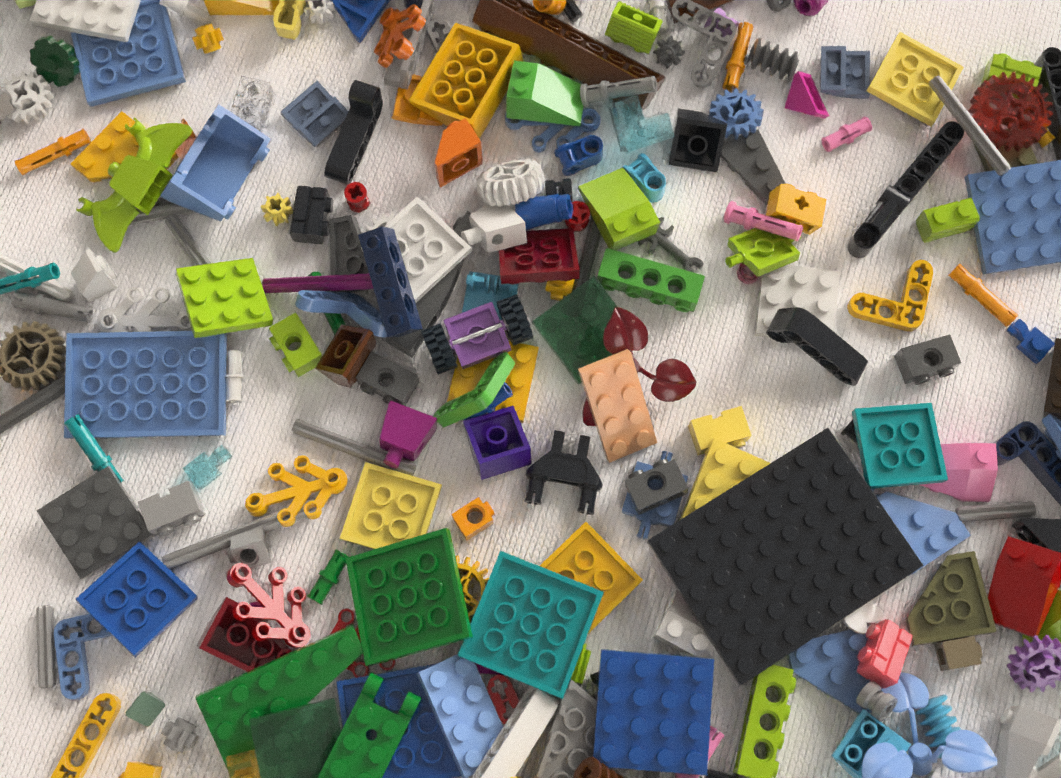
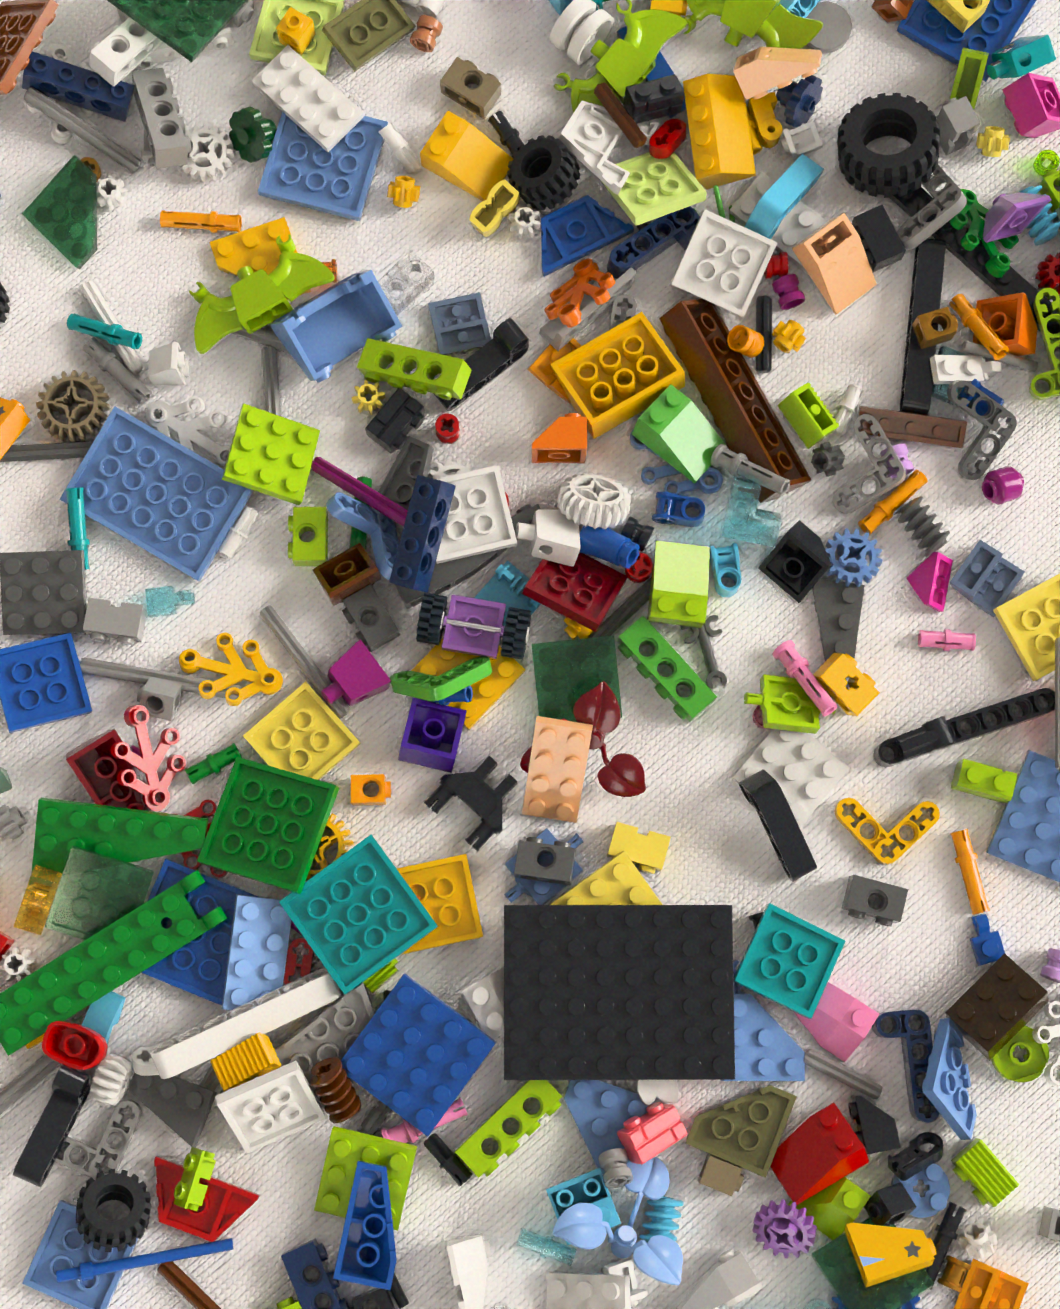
camera: 30 degrees right, 5 degrees up
(288, 161) = (380, 354): none -> lime brick

